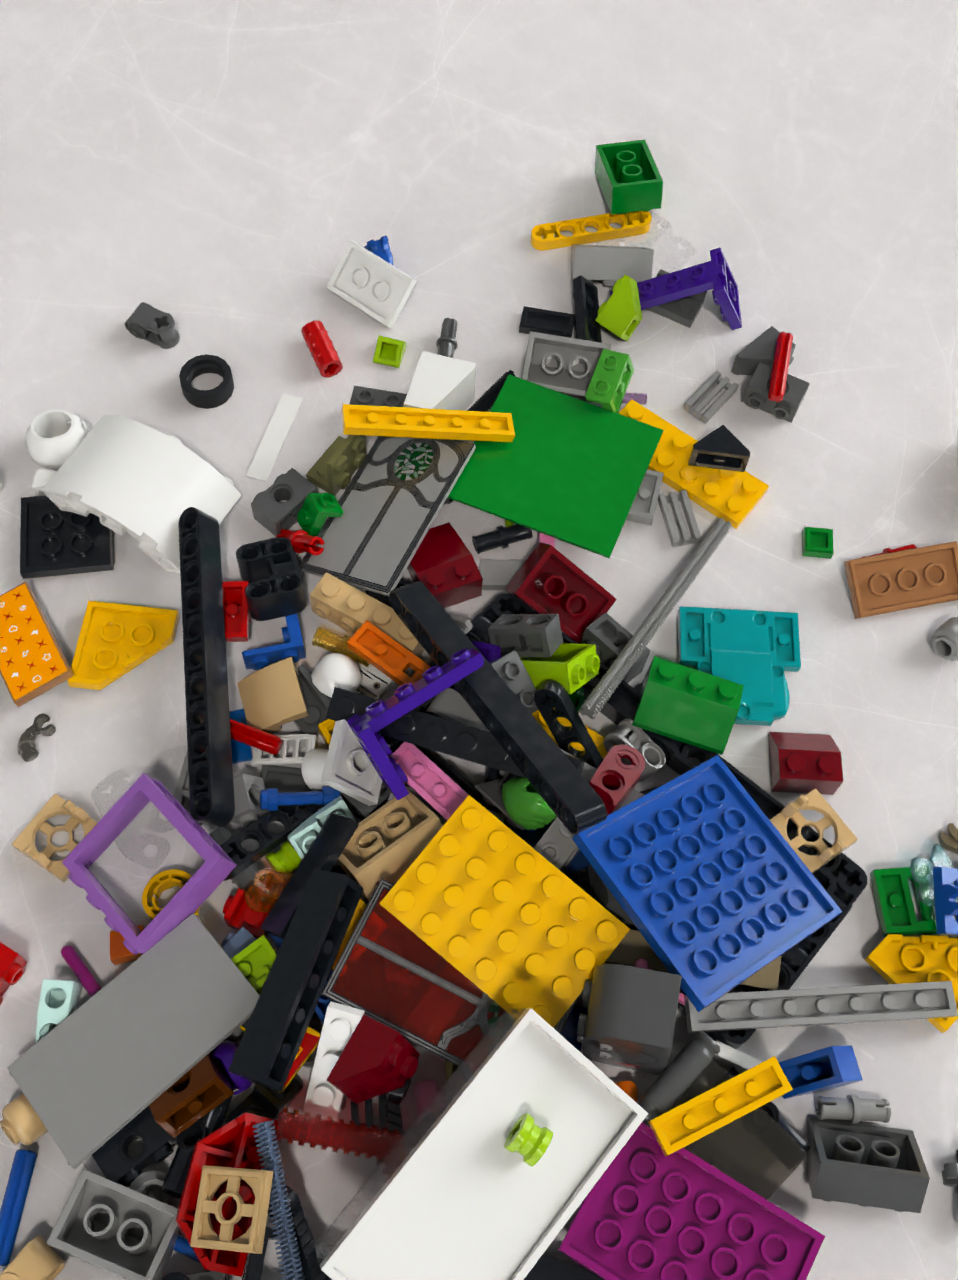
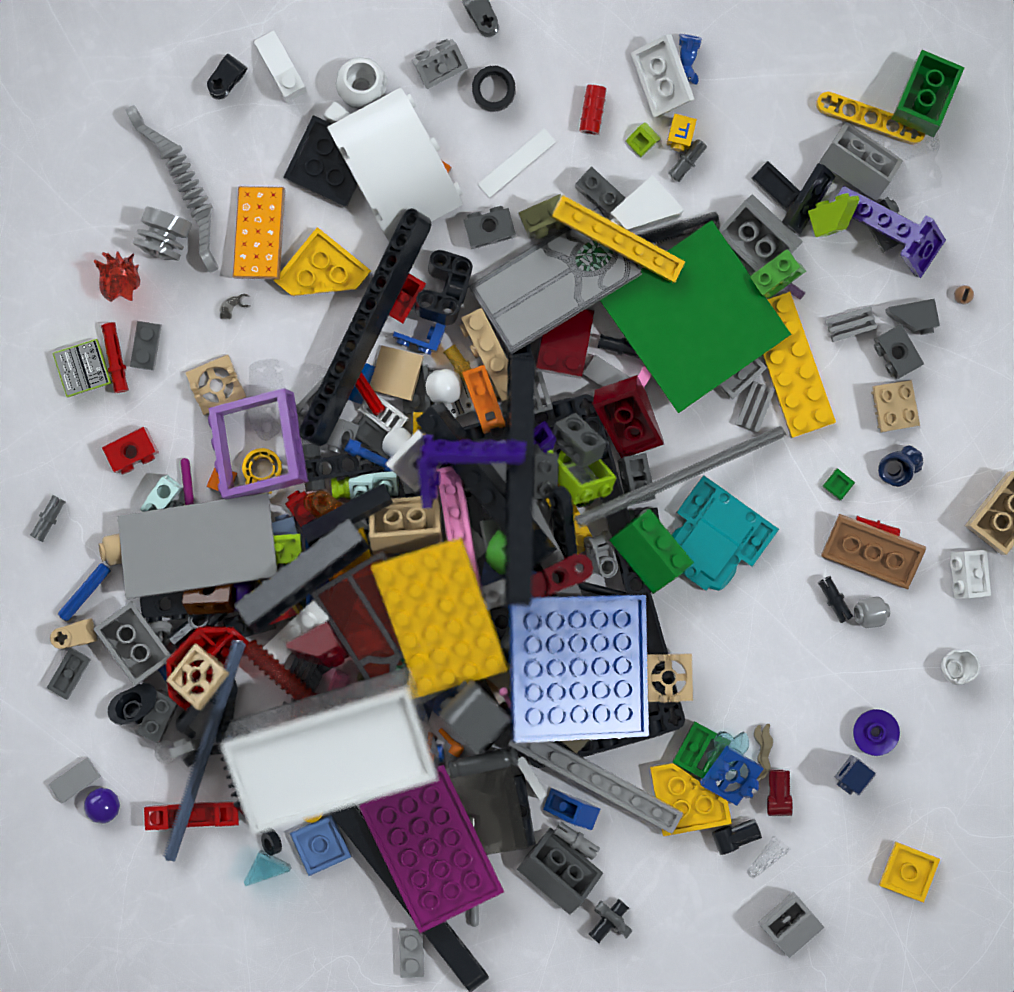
camera: 35 degrees right, 25 degrees up
(136, 386) = (439, 63): none -> light grey bracket
(302, 541) = (480, 268): red axle -> none
(316, 510) = (506, 252): green bracket -> none
(423, 322) = (681, 132): none -> yellow brick
(528, 1139) = (363, 753): lime wheel -> none
(720, 451) = (814, 378): black slope -> none
(720, 1106) = (495, 793): yellow plate -> none
(780, 367) = (910, 339): red axle -> none
(787, 320) = (959, 292): none -> medium nougat hinge
(804, 763) = (707, 627): dark red slope -> none
(814, 440) = (895, 406): none -> tan hinge
(864, 487) = (900, 466): none -> dark blue hair
(908, 650) = (835, 599): none -> black pin

